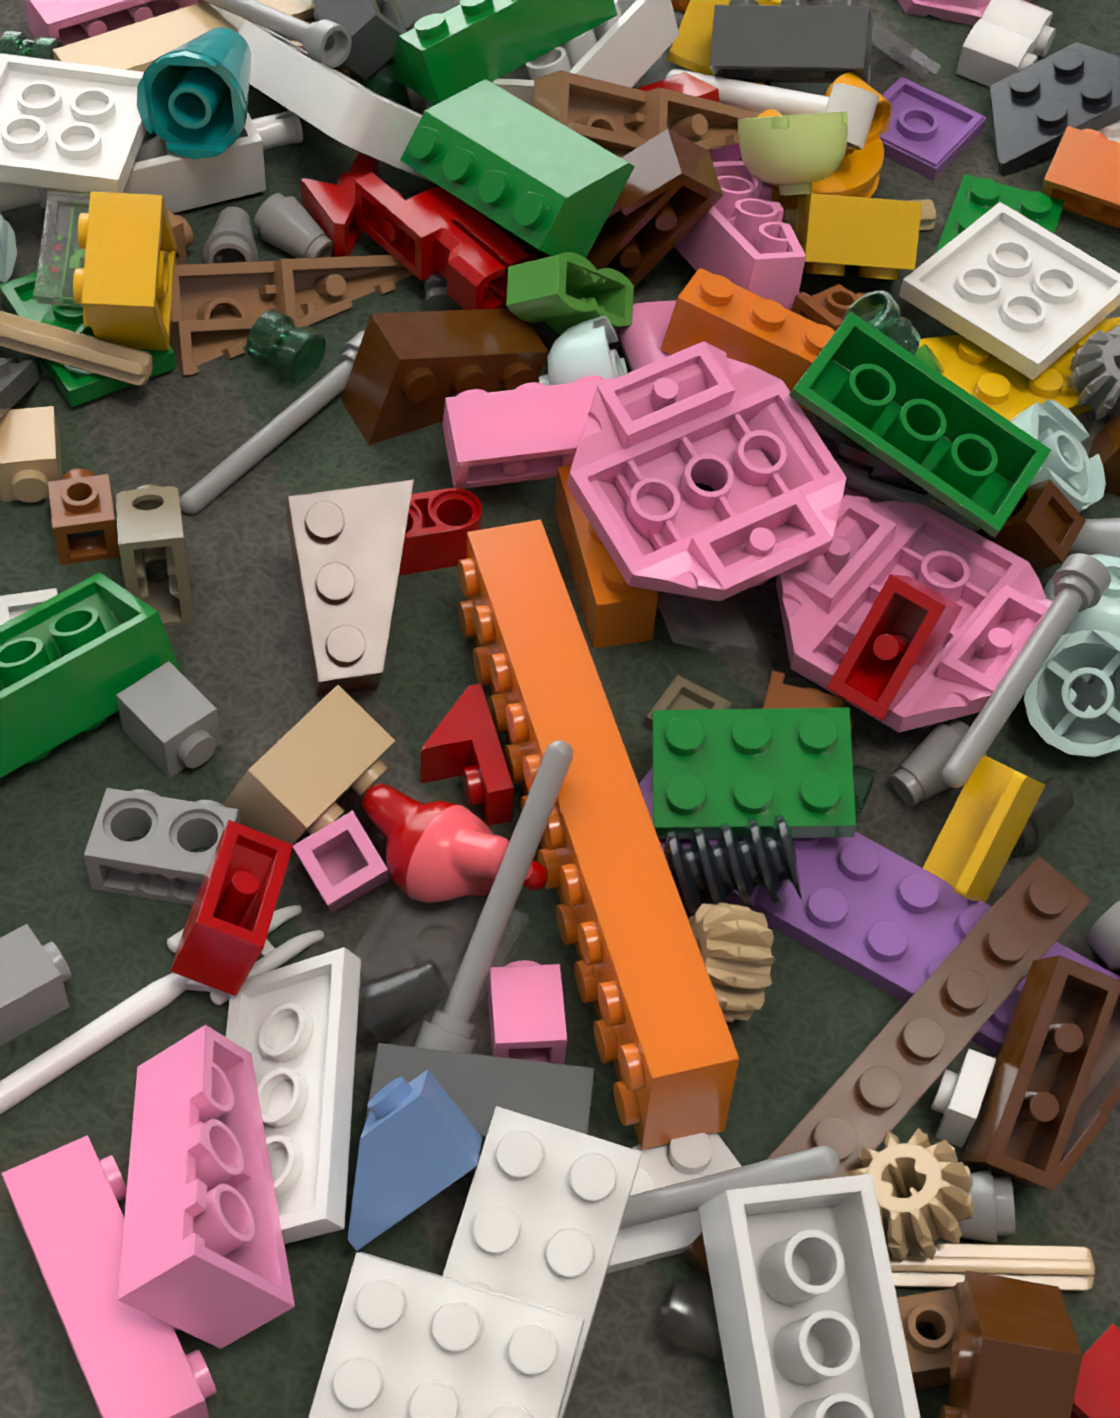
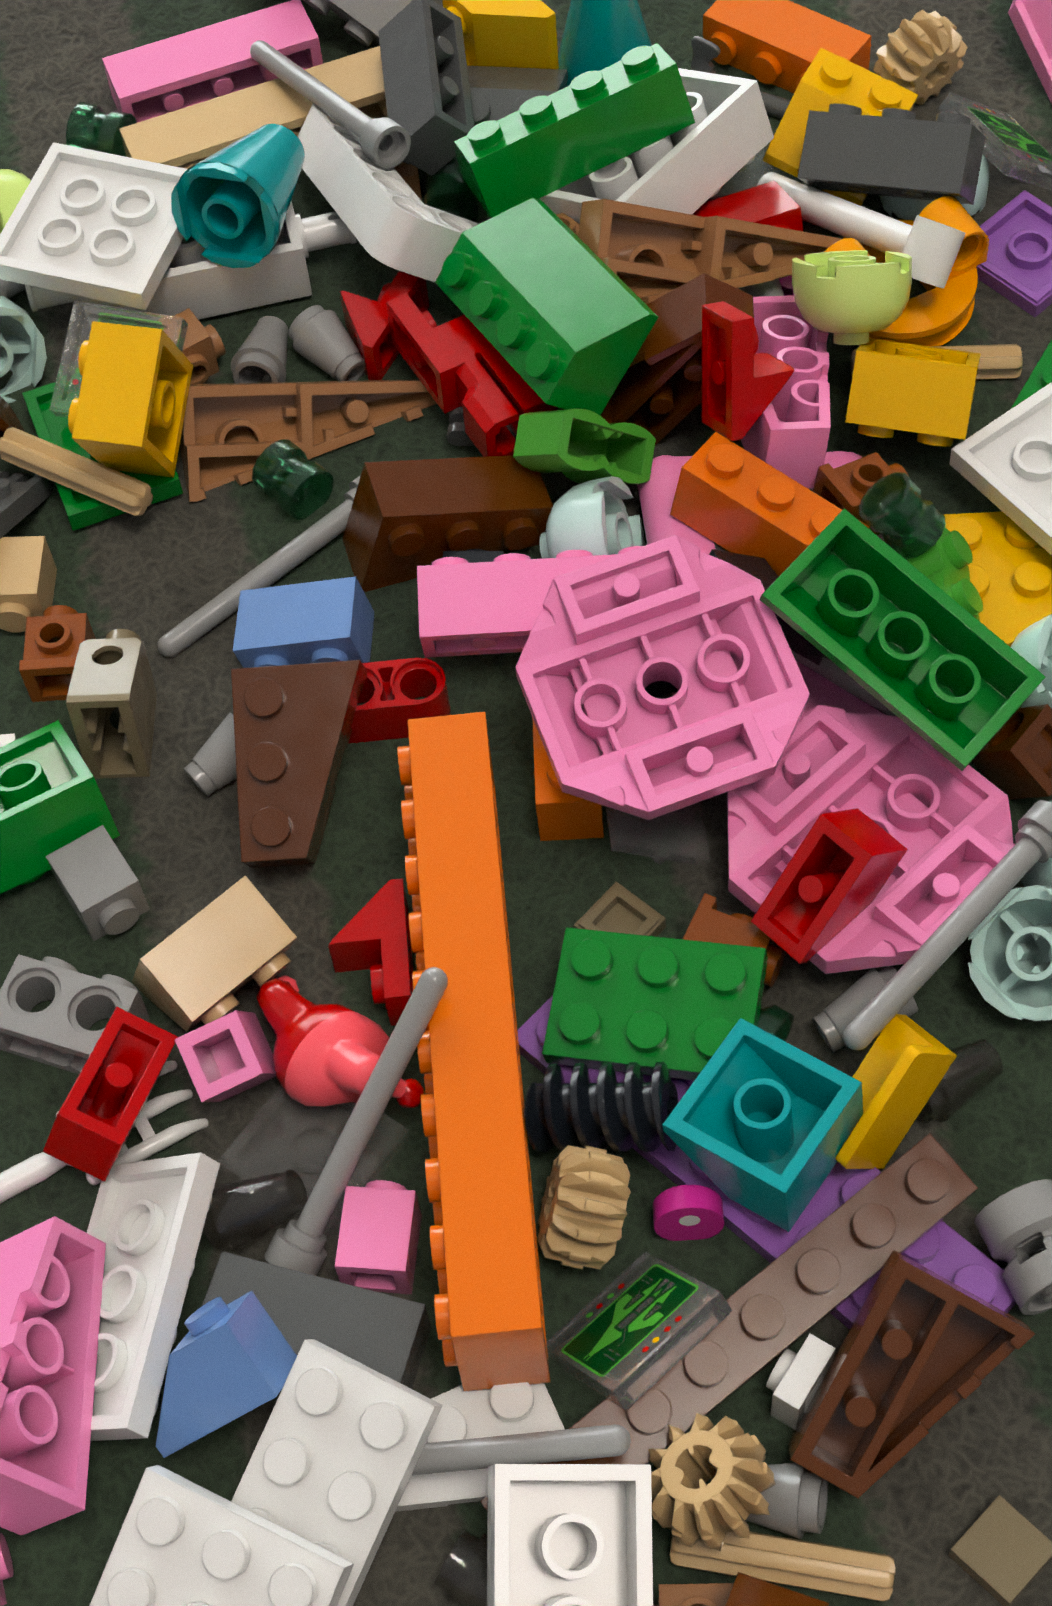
camera: 20 degrees right, 5 degrees up
(270, 594) = (216, 760): none -> light grey cone
(324, 462) = (304, 624): none -> medium blue brick
(710, 219) = (735, 378): none -> red slope
(806, 1066) = (637, 1329): none -> clear tile
(819, 960) = (688, 1213): none -> dark pink tile
(888, 860) = (766, 1122): none -> teal slope

